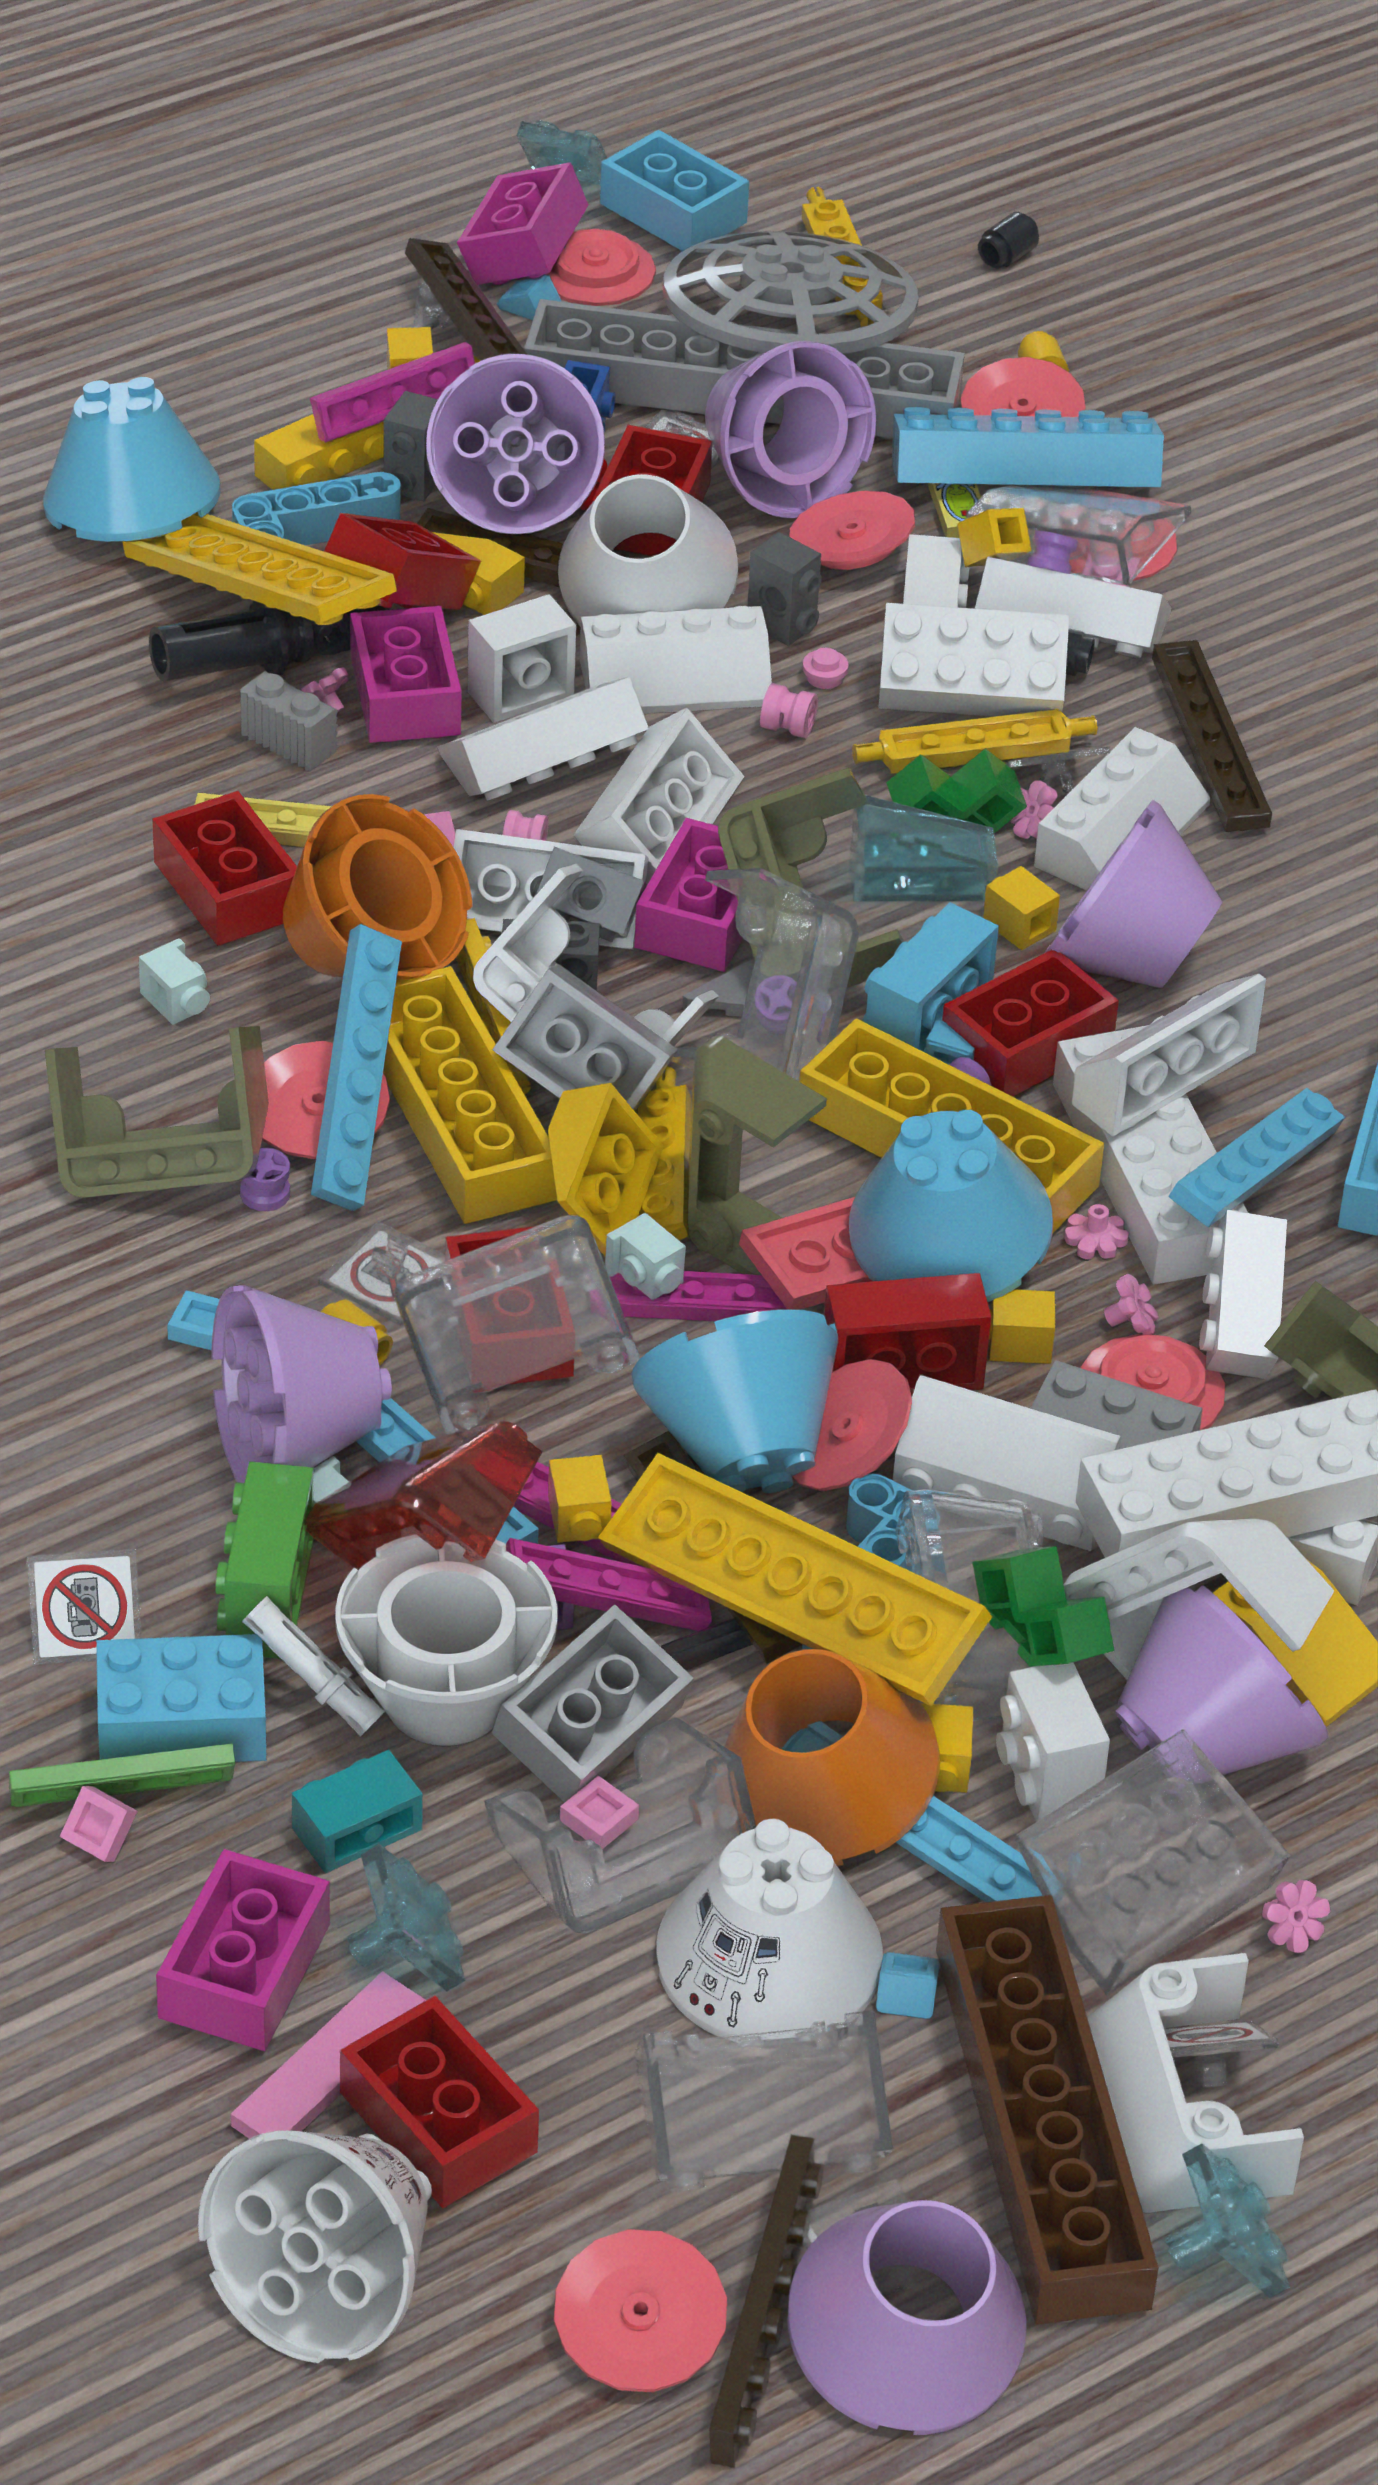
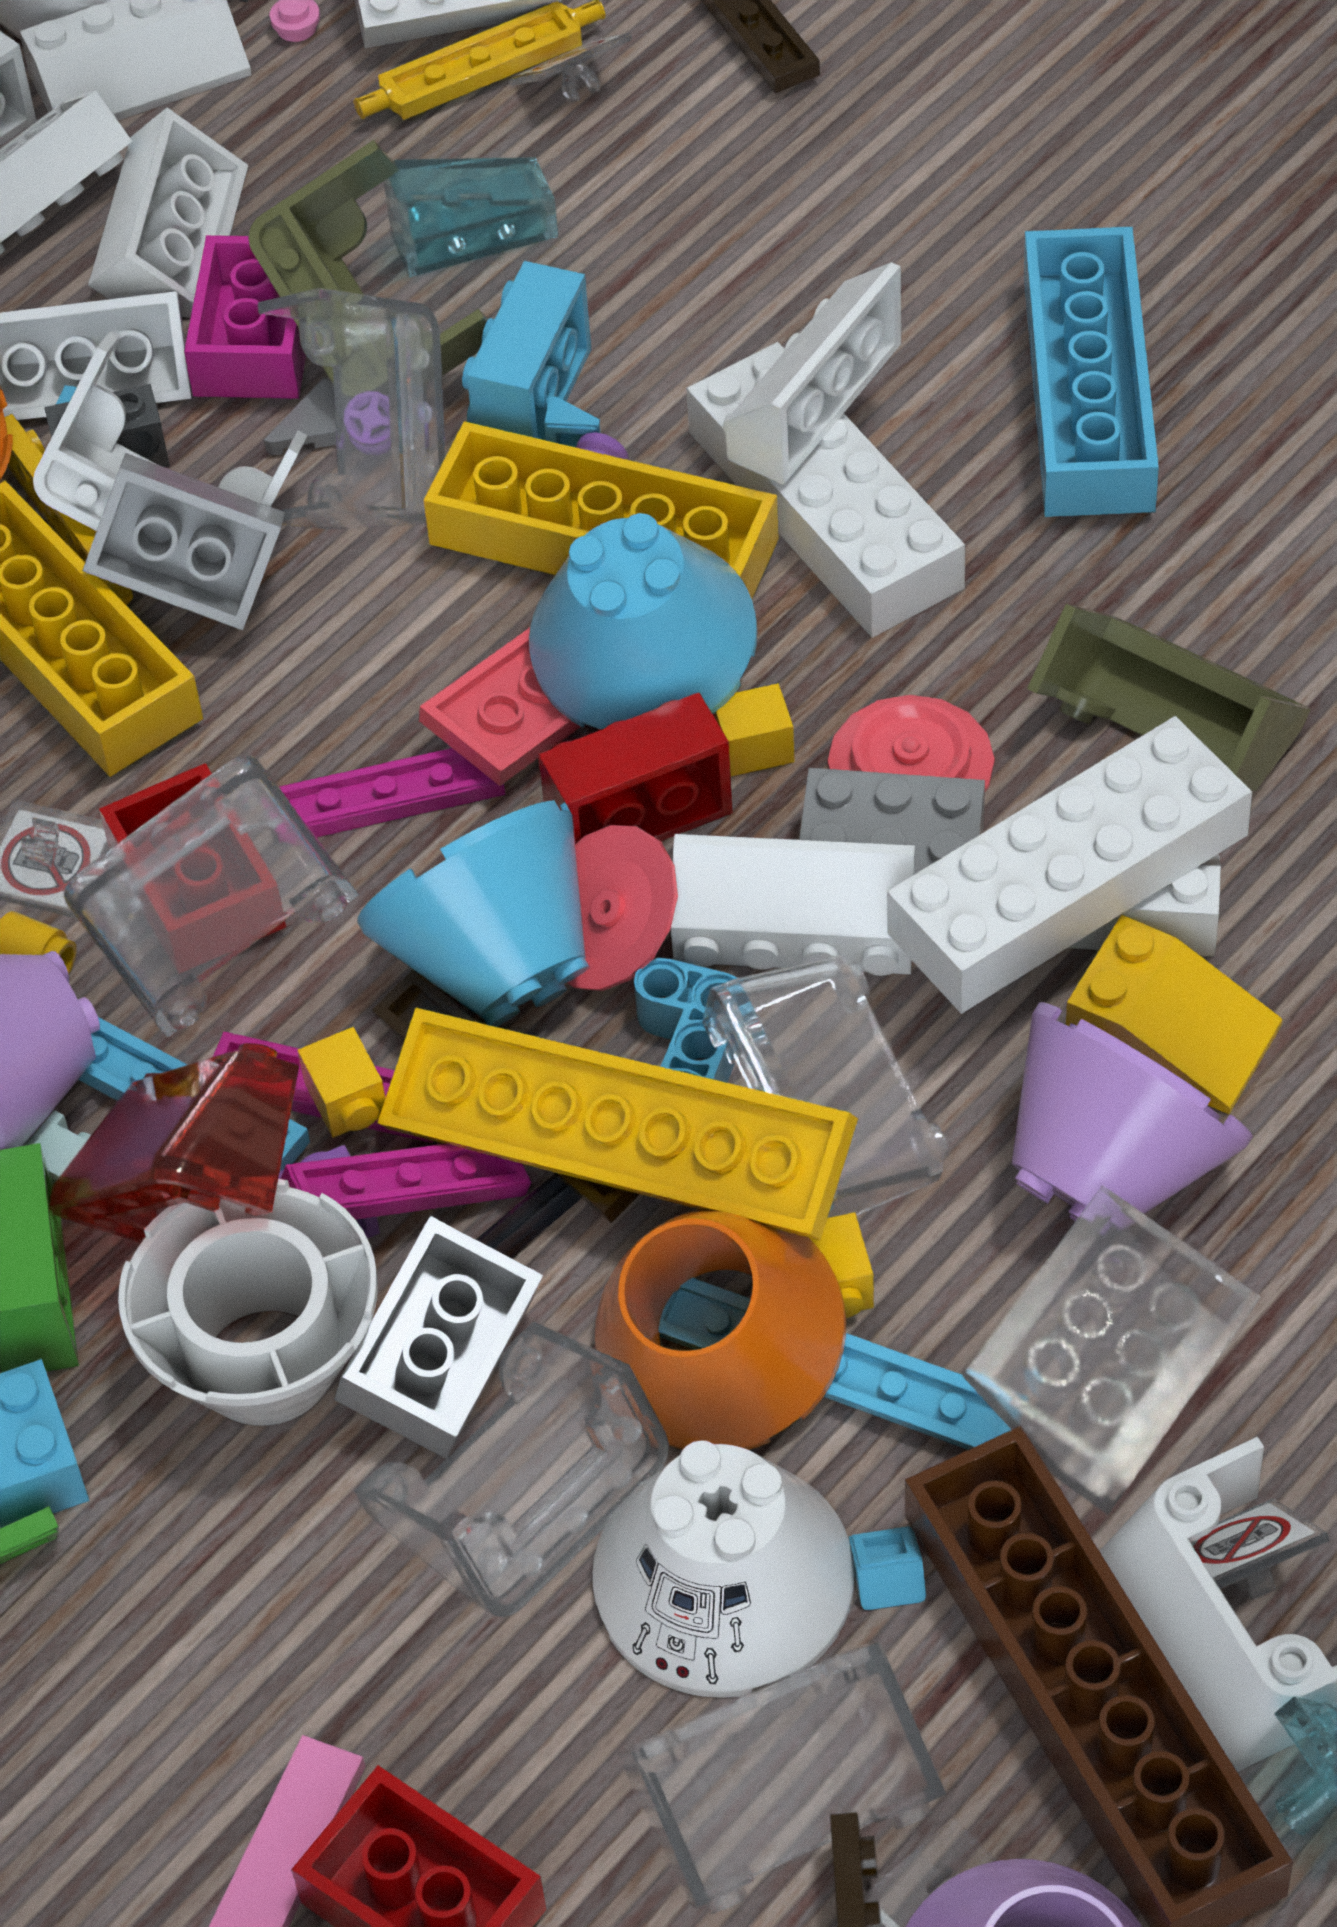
camera: 10 degrees left, 10 degrees up
(243, 1949) = (139, 1762): dark pink brick -> none
(313, 1666) = (133, 1390): white pin -> none
(356, 1810) = (212, 1540): teal brick -> none
(409, 1920) = (316, 1669): clear light blue plate -> none
(526, 827) = (34, 292): bright pink wheel -> none
(599, 1812) = (484, 1462): bright pink plate -> none
(601, 1158) = (242, 672): yellow slope -> none
(618, 891) = (160, 340): brick -> none
(646, 1256) = (324, 766): light aqua brick -> none
(669, 1118) = (307, 652): yellow plate -> none
(728, 1096) = (366, 569): olive windscreen -> none
(788, 710) = (272, 78): bright pink wheel -> none
(979, 792) = (504, 122): green brick -> none
(1021, 907) = (592, 239): yellow brick -> none
(1025, 1013) = (642, 363): red brick -> none
(1030, 1602) = (881, 1076): green brick -> none
(1039, 803) = (569, 123): bright pink plant -> none
(1051, 1737) = (956, 1230): white brick -> none
(1096, 1233) = (793, 594): bright pink plant -> none
(1105, 805) = (663, 106): white slope -> none
(1132, 1306) = (862, 673): bright pink plant -> none
(1141, 907) = (722, 209): lavender cone -> none
(1243, 1293) = (981, 629): white brick -> none
(1246, 1551) = (985, 1043): white windscreen -> none
(1257, 1157) = (941, 466): medium azure plate -> none
(1296, 1915) = (1280, 1358): bright pink plant -> none

